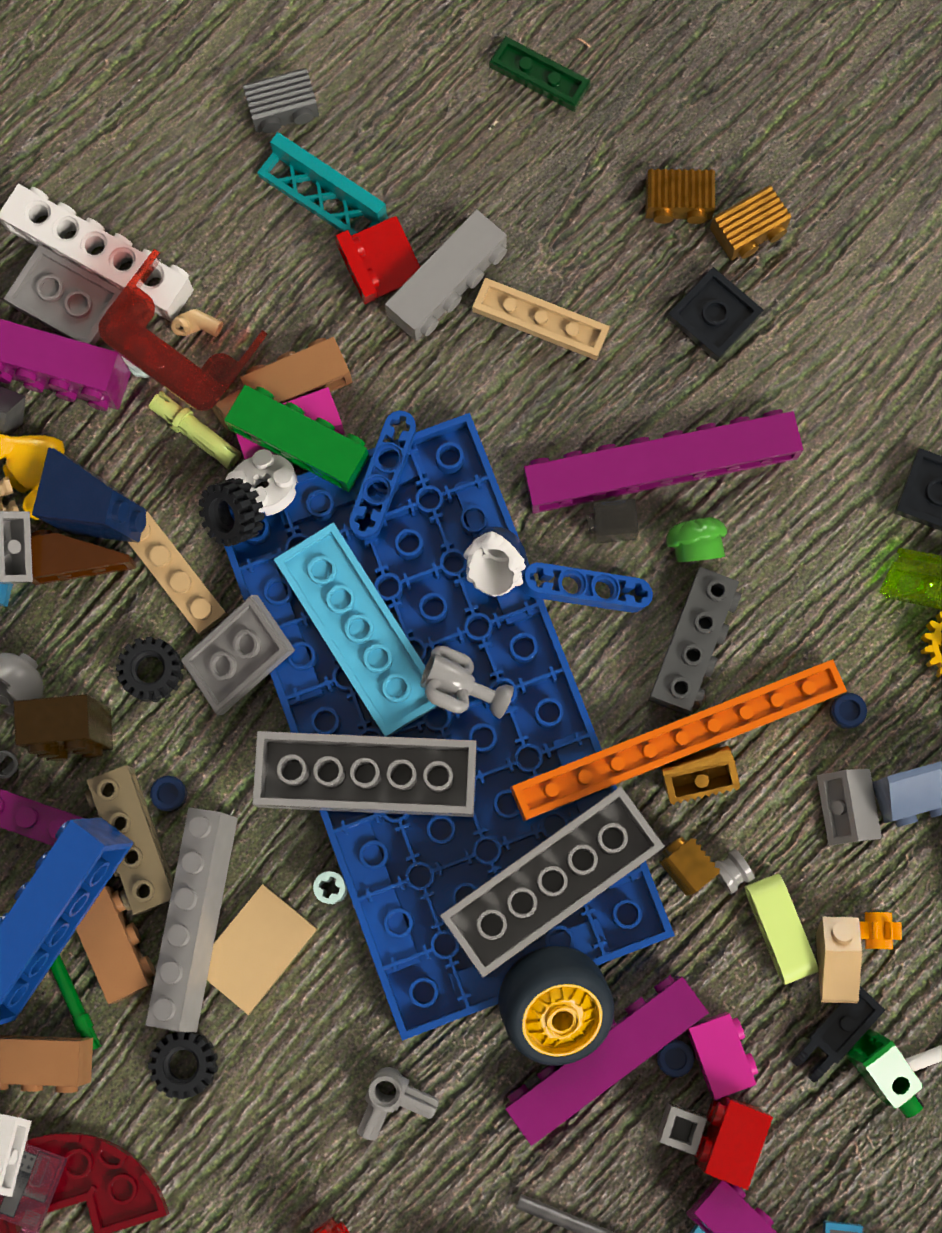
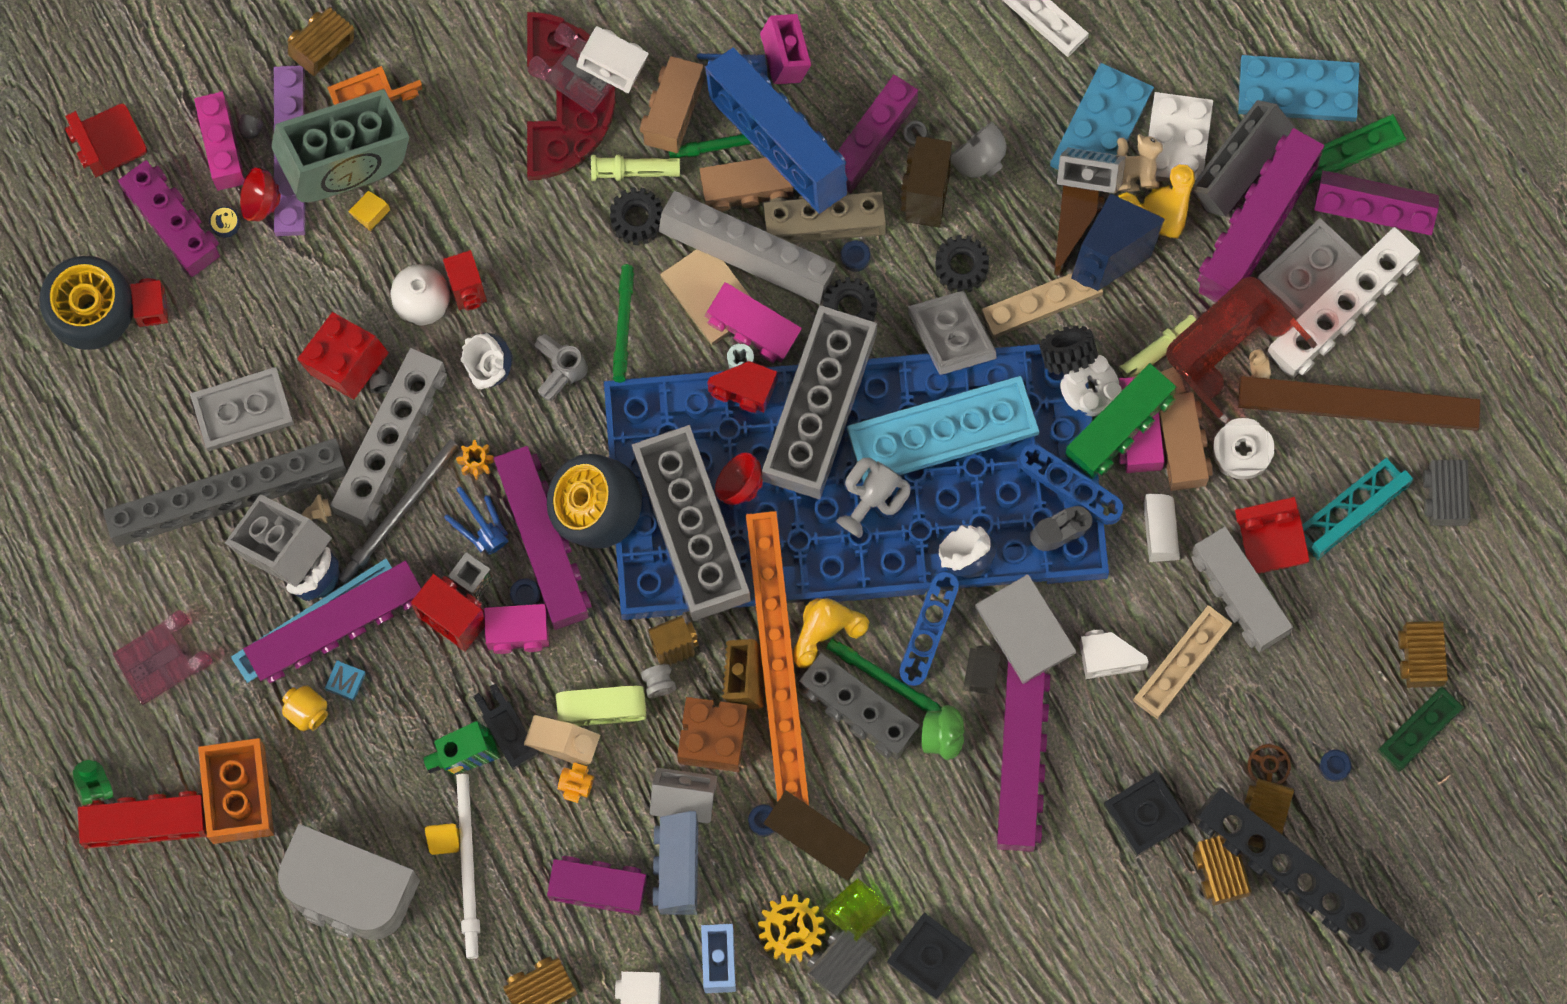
camera: 105 degrees right, 5 degrees down
(127, 1102) = (643, 167): none -> yellowish green pin
(205, 213) = (1359, 403): none -> reddish brown tile
(210, 781) = (854, 289): none -> black tyre
(284, 886) = (752, 323): none -> dark pink brick
(296, 299) = (1232, 462): none -> white plate
(365, 866) = (745, 384): none -> red slope
(365, 1029) = (620, 355): none -> green piece
(400, 378) = (1161, 528): none -> white brick
(411, 1192) = (487, 360): none -> white hair
(448, 482) = (1048, 532): none -> dark grey piece
(462, 84) = (1424, 654): none -> pearl gold brick
(482, 849) = (739, 480): none -> red piece
(538, 1178) = (476, 452): none -> light orange gear
(557, 395) = (1109, 655): none -> white slope
(560, 481) = (1025, 629): none -> light grey tile
(603, 145) = (1335, 765): none -> dark blue tile
(616, 702) = (822, 621): none -> yellow head
(622, 1121) = (490, 537): none -> blue plant
(623, 215) = (1261, 760): none -> reddish brown piece
(638, 665) = (853, 658): none -> green piece
(749, 112) = (1399, 943): none -> black brick
(779, 789) = (712, 734): none -> dark orange piece
(849, 648) = (816, 835): none -> dark brown sticker

